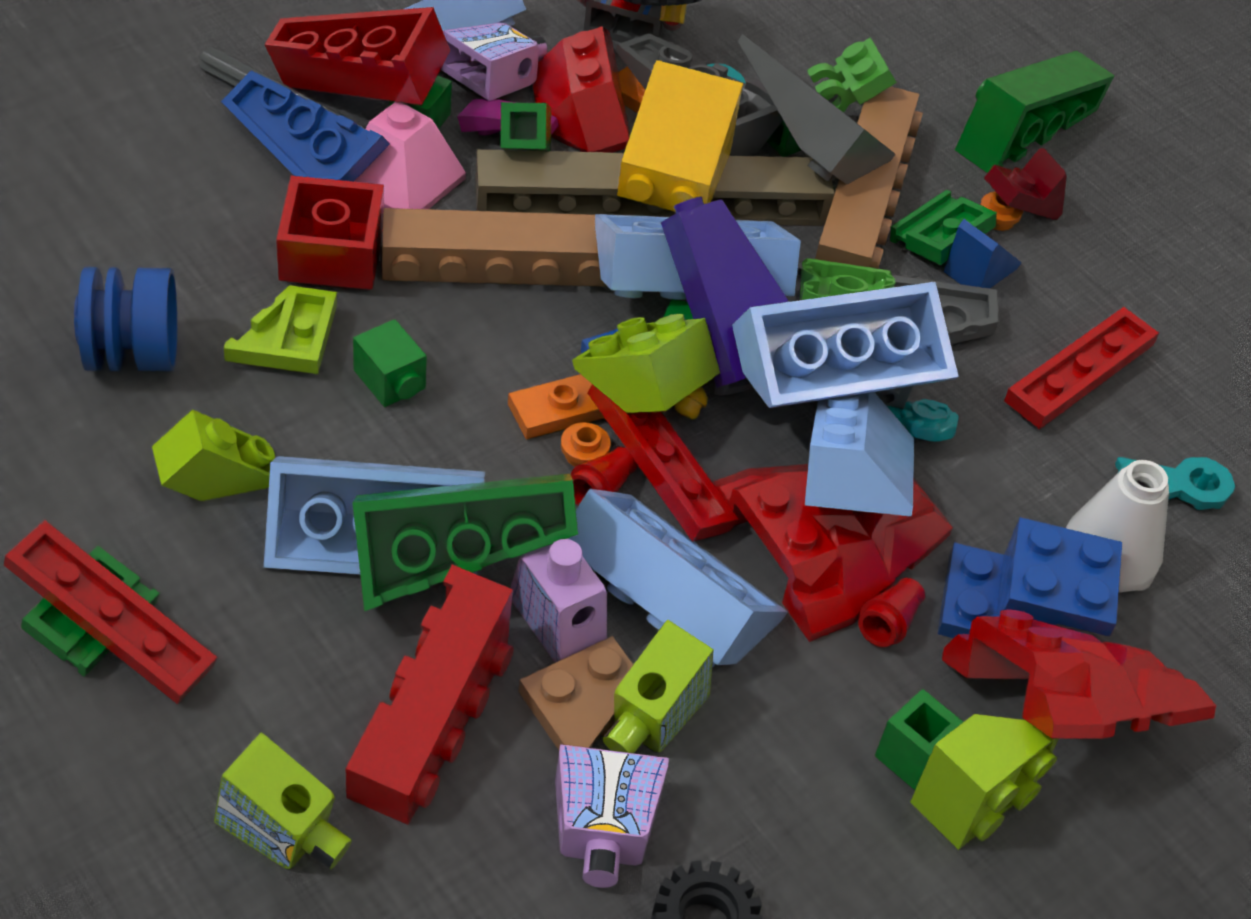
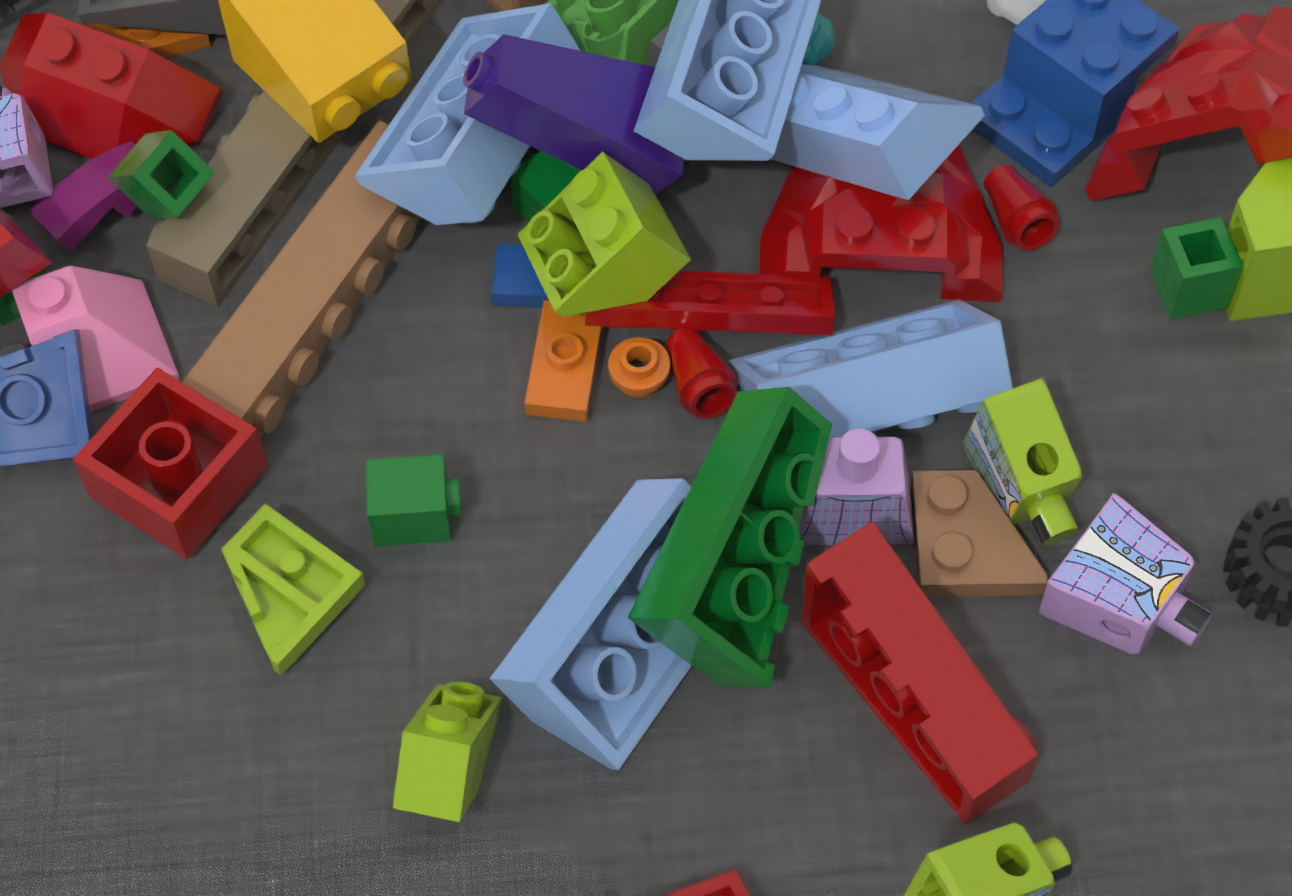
camera: 50 degrees left, 10 degrees up
(127, 319) = (184, 746): blue wheel -> none

